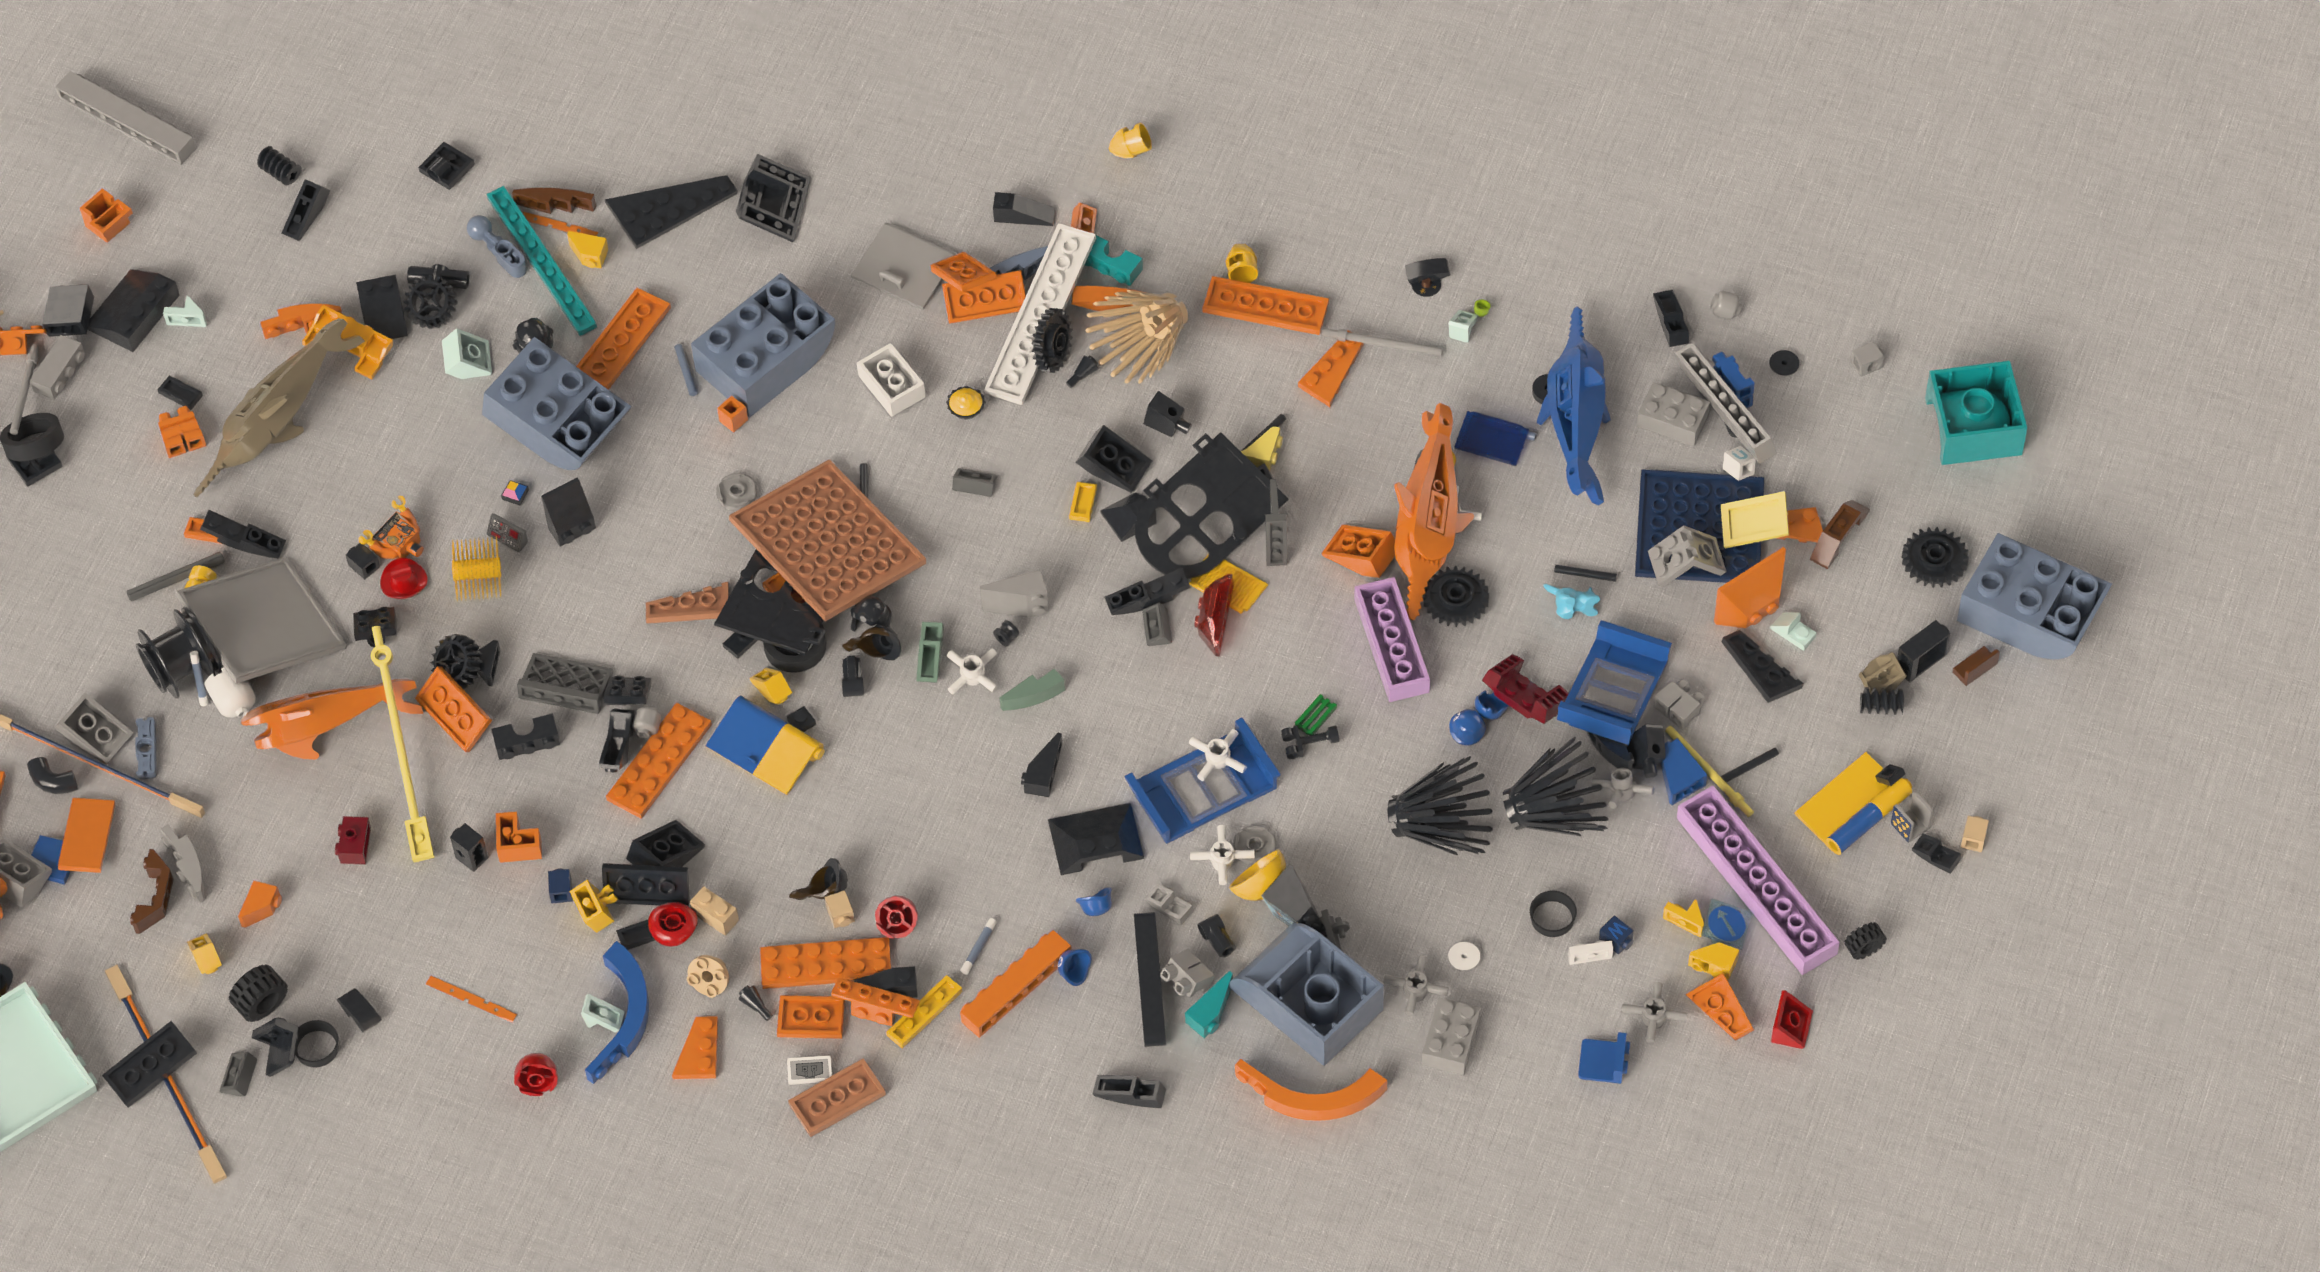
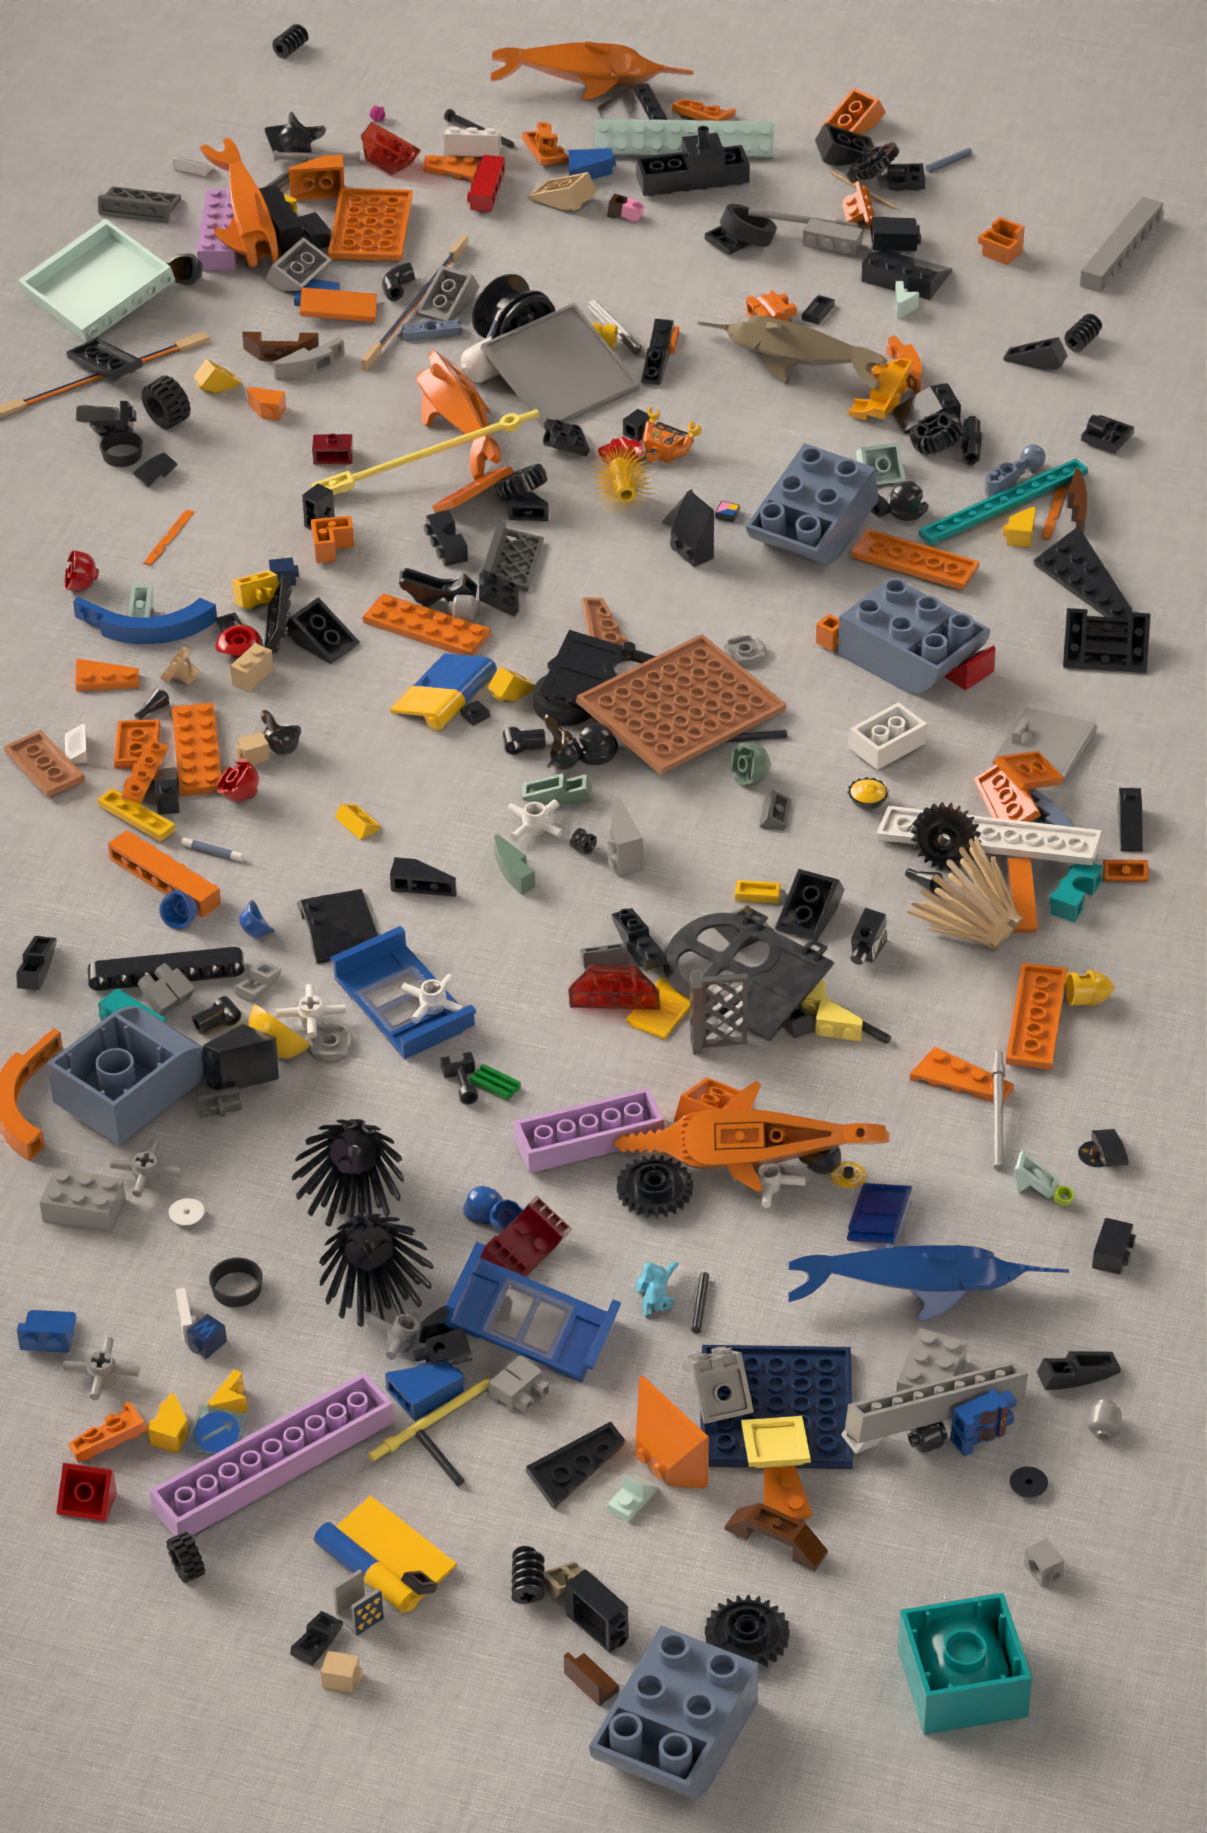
camera: 85 degrees right, 15 degrees down
(918, 492) = (750, 763): none -> sand green cylinder
(949, 822) = (357, 820): none -> yellow slope
(1540, 279) = (1113, 1245): none -> black brick

